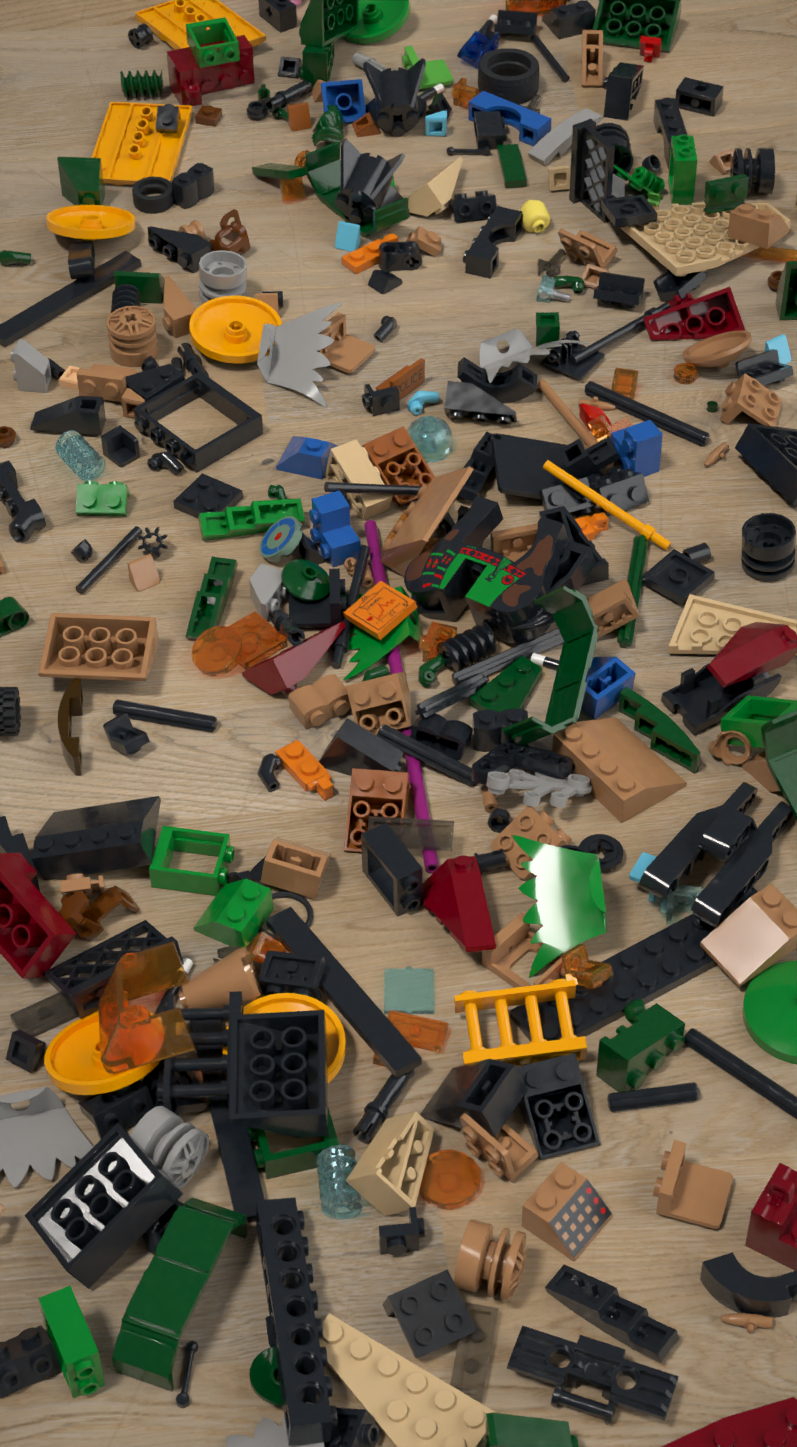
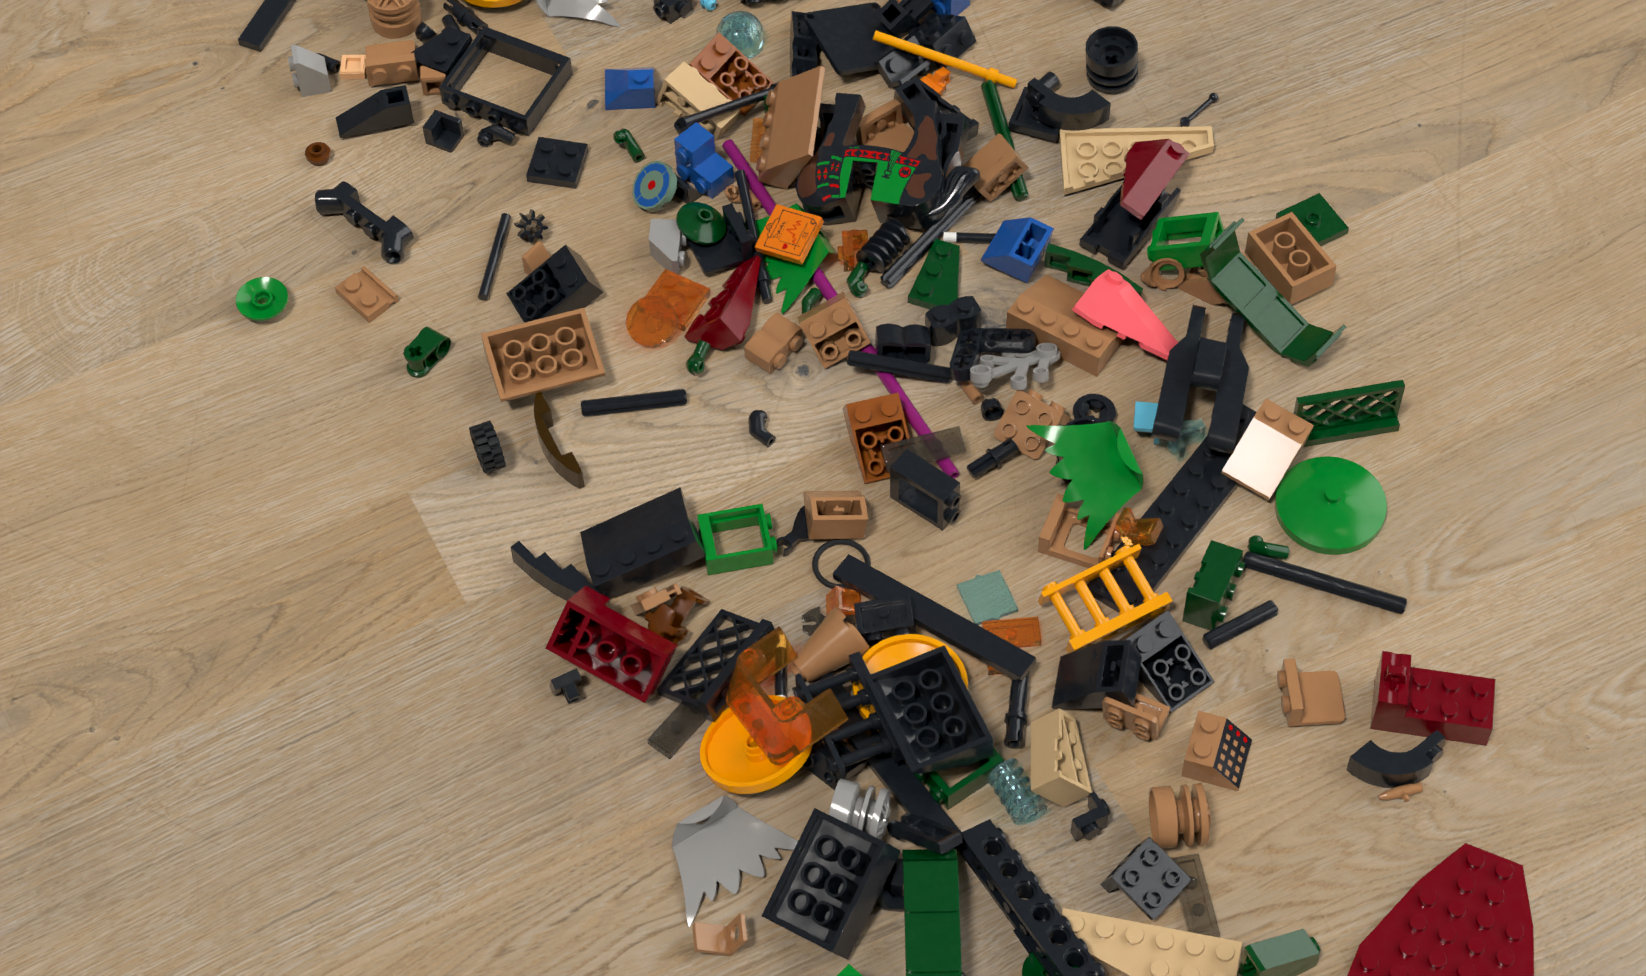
camera: 20 degrees left, 10 degrees up
(25, 1050) = (680, 768): black tile -> none
(79, 455) = (409, 154): clear light blue piece -> none
(82, 551) = (465, 255): black hinge -> none
(102, 499) = (455, 194): bracket -> none
(119, 1106) = (792, 795): black bracket -> none
(124, 736) = (610, 436): black bracket -> none
(151, 594) = (555, 287): none -> black slope
(212, 597) = (617, 267): dark green slope -> none
(223, 1189) = (925, 833): none -> black hinge
(236, 913) = (800, 576): green slope -> none
(239, 697) = (695, 363): none -> dark green arm
(248, 519) = (611, 173): green slope -> none
(287, 627) = (704, 275): black pin -> none
(306, 769) = (792, 415): orange hinge -> none
(359, 749) = (837, 384): black slope -> none
(450, 1179) = (1106, 756): clear orange tile -> none
(451, 696) = (895, 301): black axle -> none
(459, 902) = (999, 501): dark red wedge -> none
(580, 636) = (998, 244): dark green windscreen -> none
(596, 1364) = (1302, 872): black piece -> none
(612, 1314) = (1291, 825): black slope -> none
(633, 1009) = (1192, 552): dark green hinge -> none
(668, 762) = (1118, 306): none -> coral wedge
(704, 580) = (1068, 112): none -> black arch
(708, 1027) = (1267, 549): none -> dark green arm

